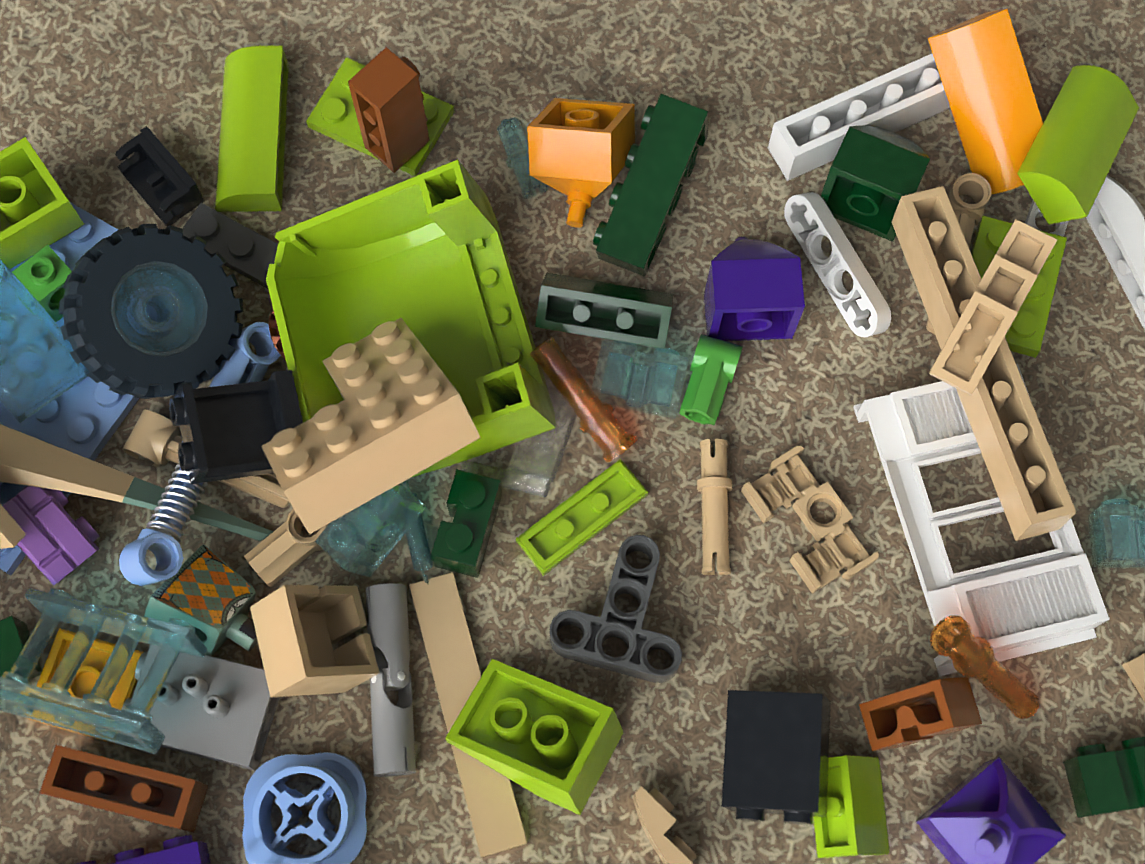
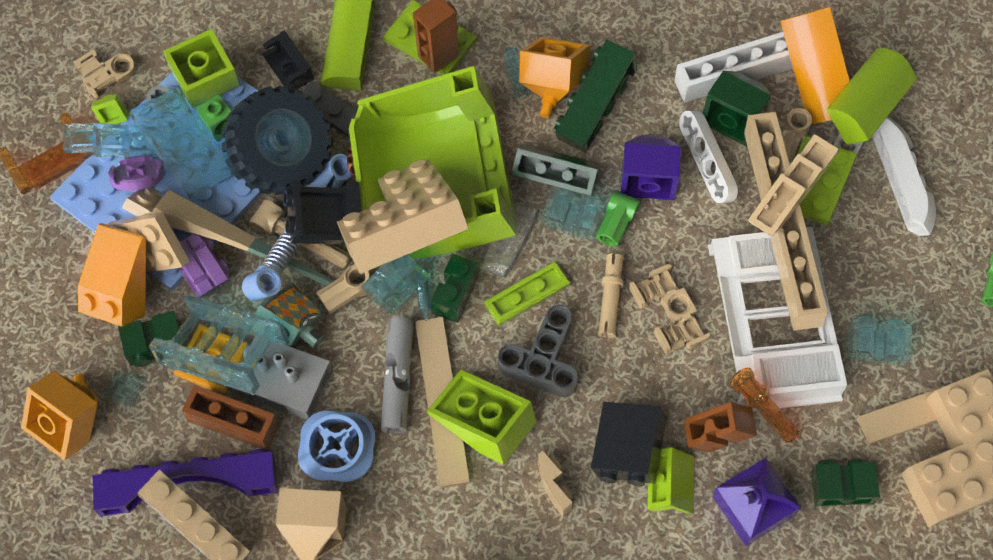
camera: 10 degrees right, 5 degrees down
(297, 636) = (345, 338): tan piece -> none
(594, 415) = (542, 232): clear orange pin -> none

